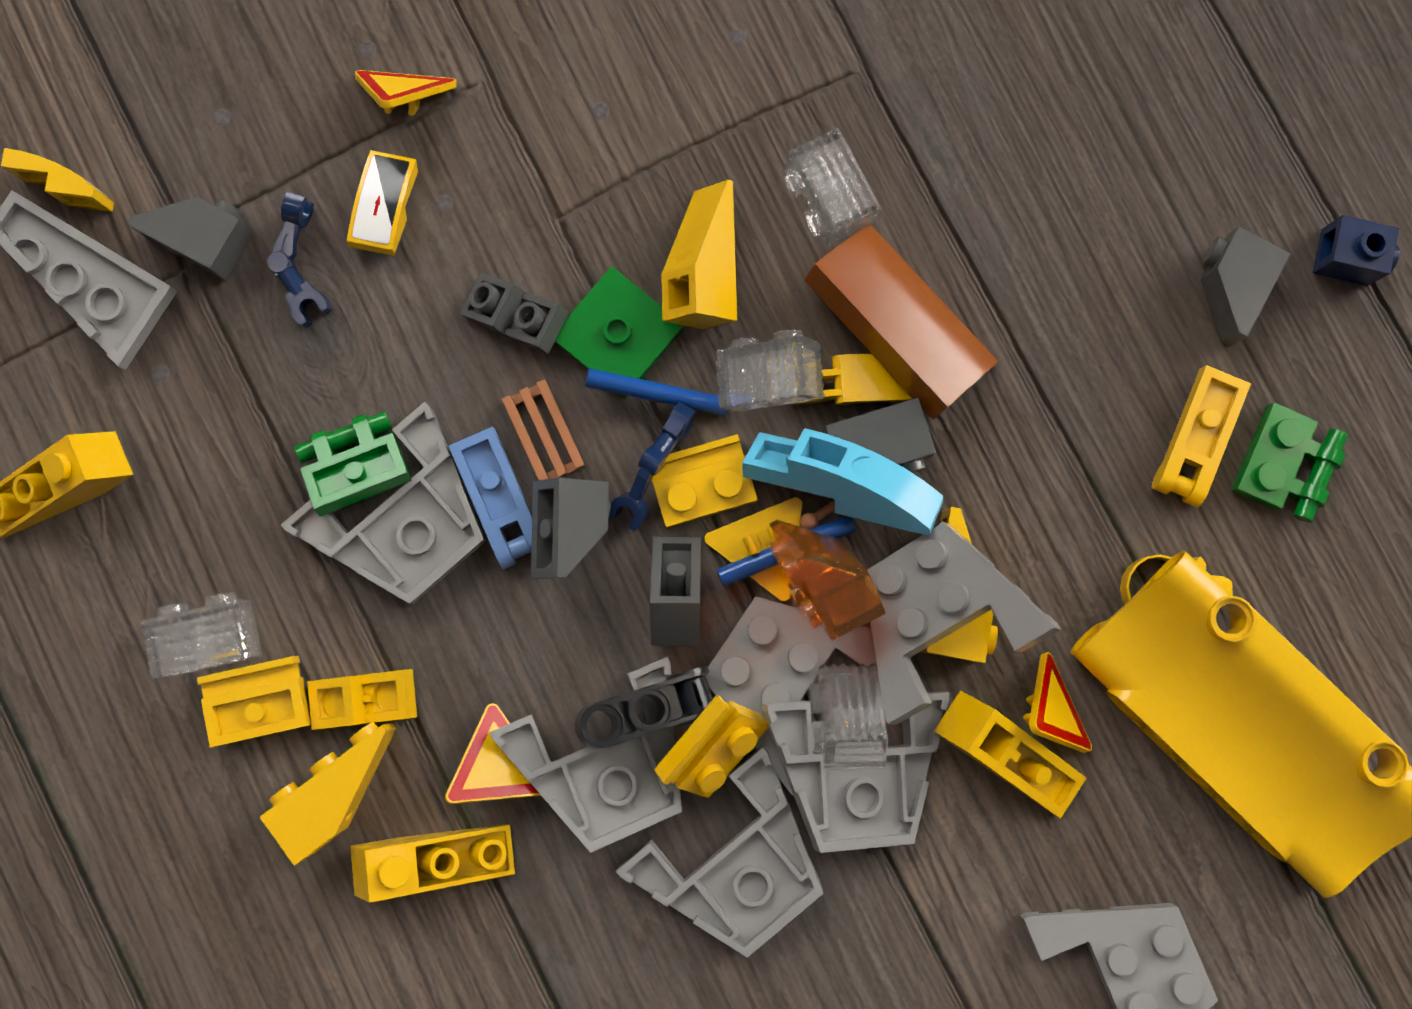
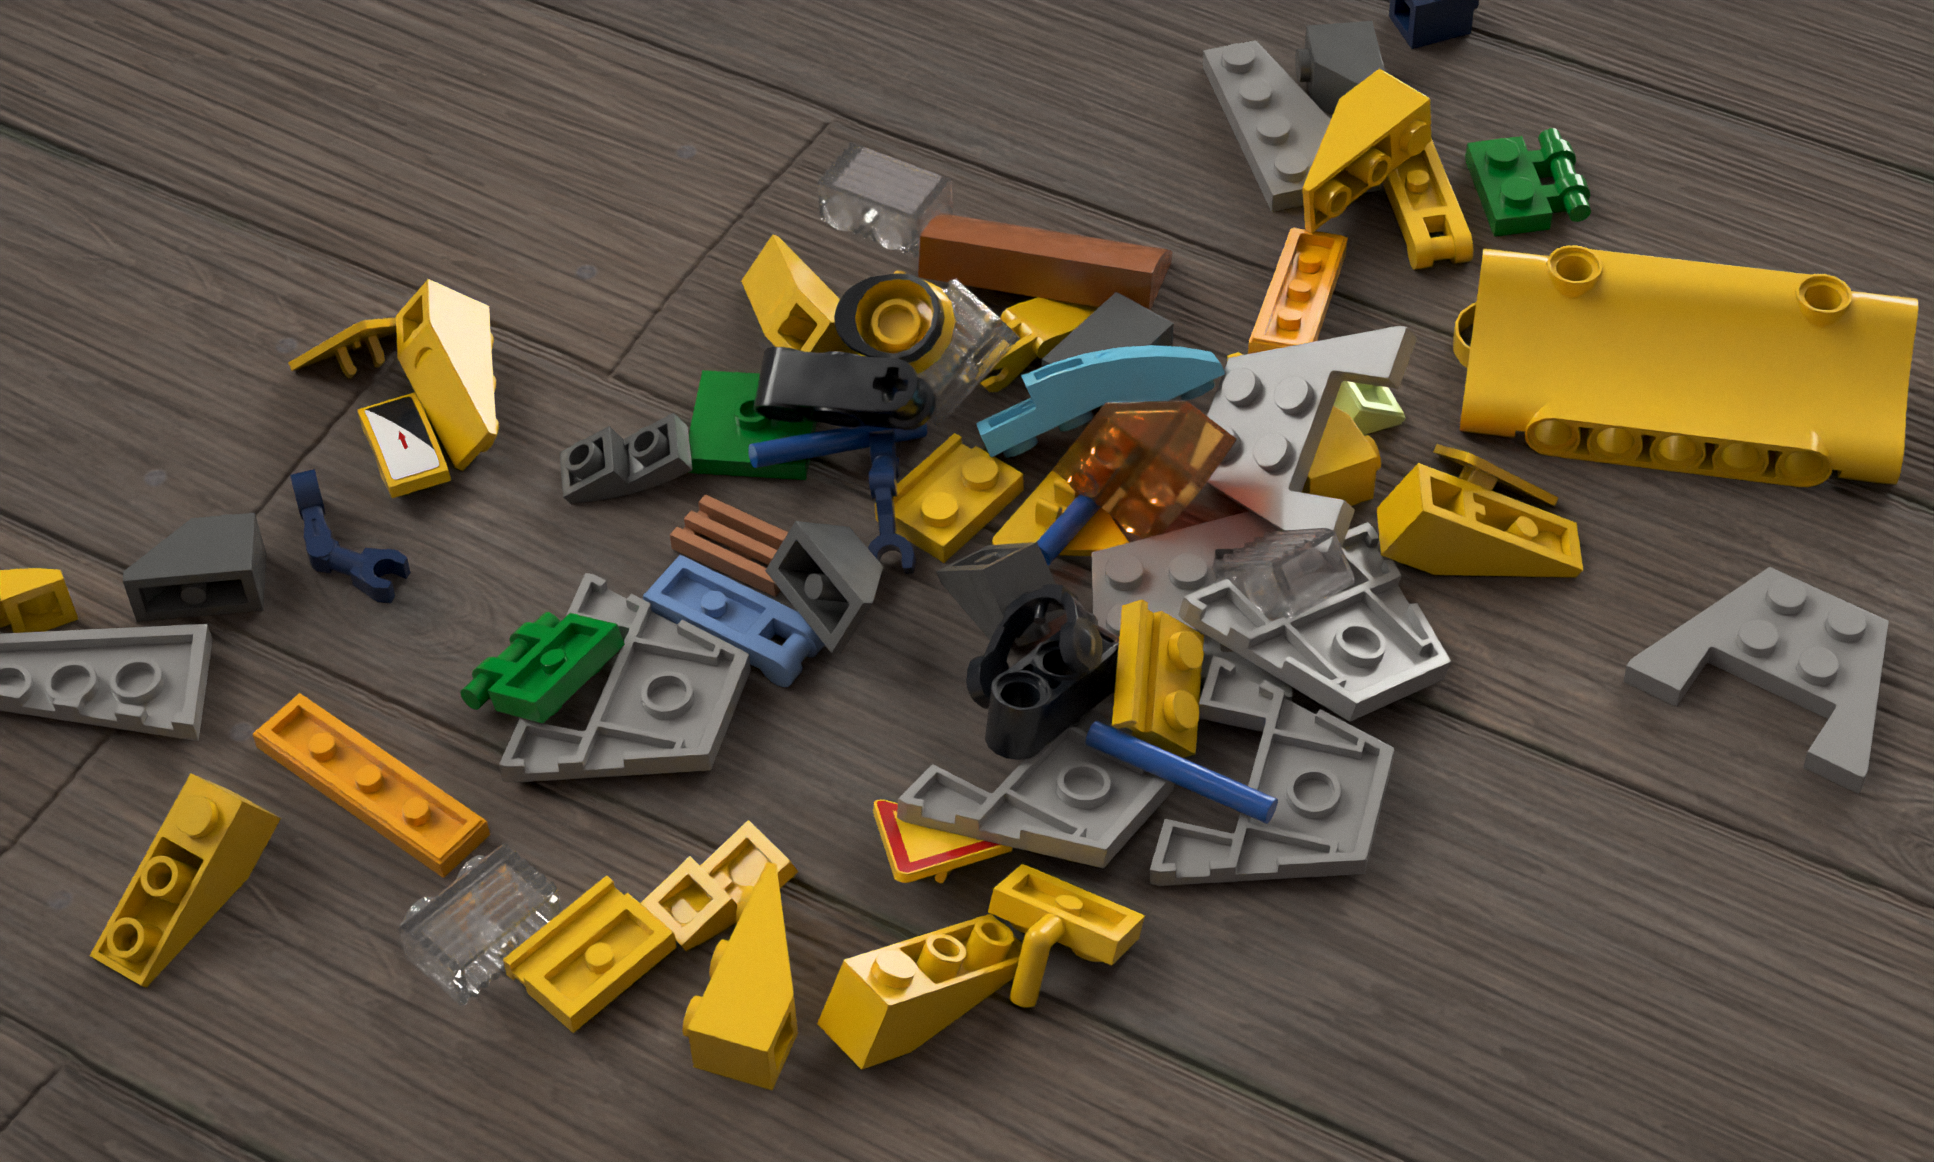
camera: 30 degrees left, 35 degrees down
(208, 474) = (372, 785): none -> light orange tile
(445, 152) = (448, 360): none -> yellow slope
(541, 872) = (1060, 913): none -> yellow plate
(665, 712) = (1078, 643): none -> black piece
(670, 371) = (842, 390): none -> black piece
(679, 826) = (1181, 772): none -> blue bar
(737, 344) = (896, 319): none -> yellow piece
(1029, 575) = (1369, 406): none -> yellowish green slope
(1042, 478) = (1299, 290): none -> light orange tile
(1157, 301) = (1270, 118): none -> light grey wing
(1205, 367) = (1366, 139): none -> yellow slope

